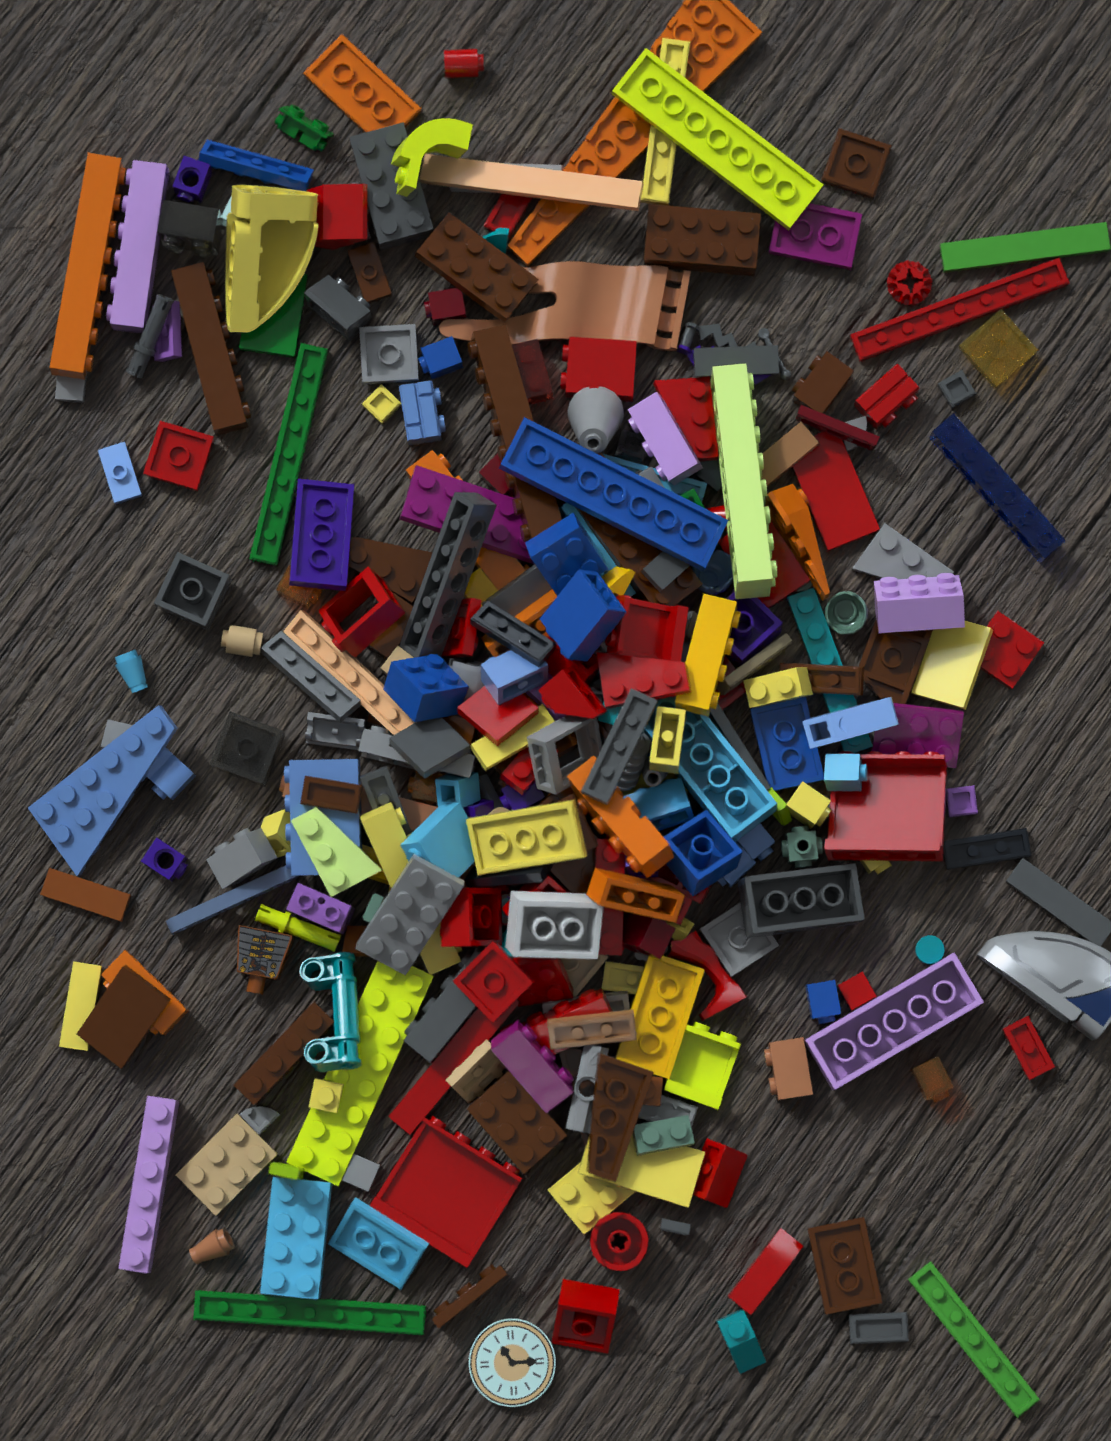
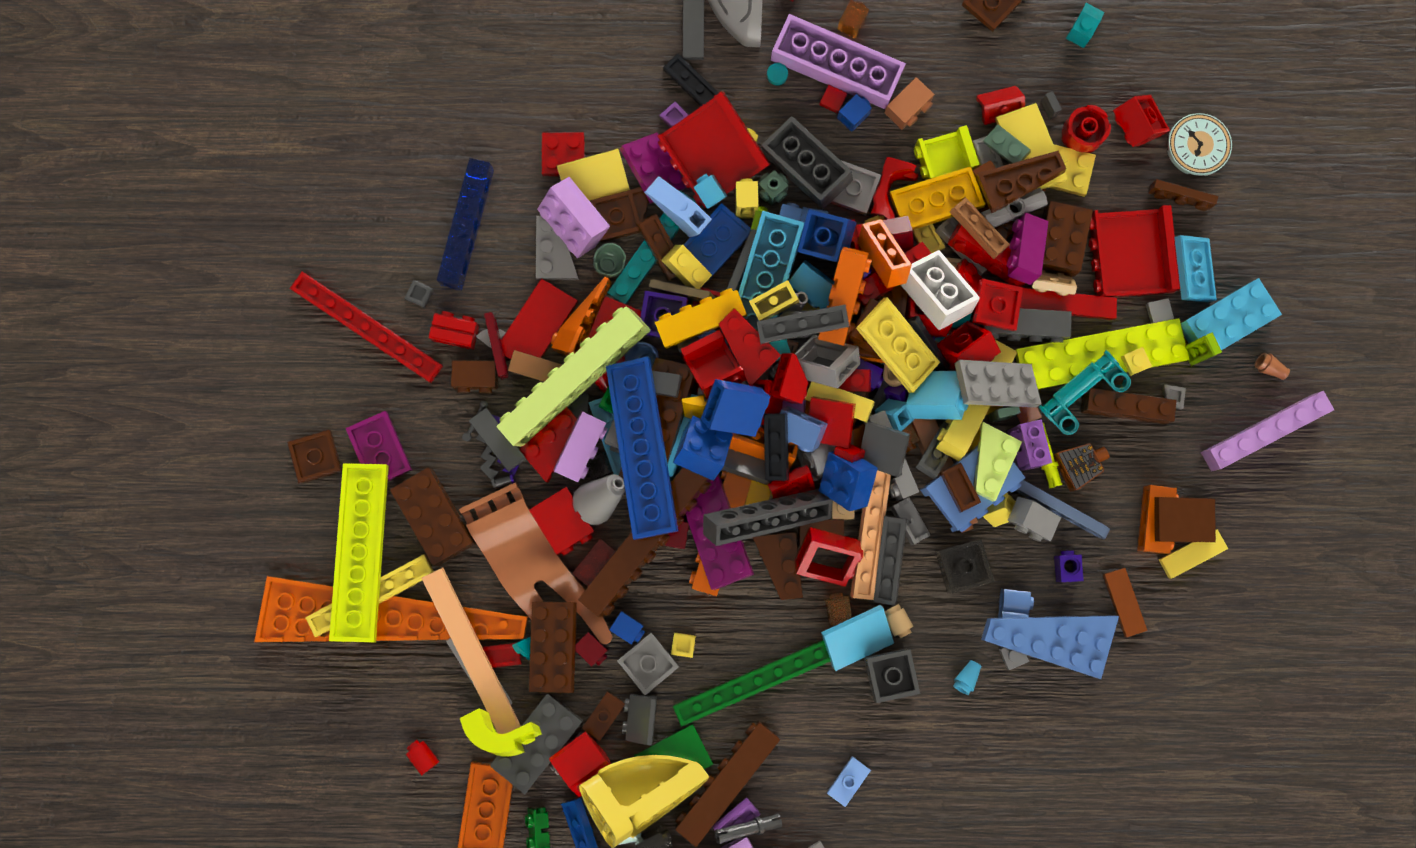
camera: 130 degrees left, 0 degrees up
(178, 456) = (811, 751): red plate -> none
(226, 1164) = (1217, 394): tan plate -> none
(256, 584) = (857, 637): none -> medium azure tile
(309, 1312) = (1253, 268): green tile -> none
(321, 534) = (796, 619): dark purple plate -> none
(421, 413) = (671, 614): medium blue brick -> none
(448, 707) = (851, 454): none -> red tile
(765, 1271) = (1038, 36): red slope -> none
(900, 291) = (380, 369): red gear -> none
(998, 348) = (375, 285): clear yellow plate -> none
(1025, 247) = (297, 314): bright green tile -> none

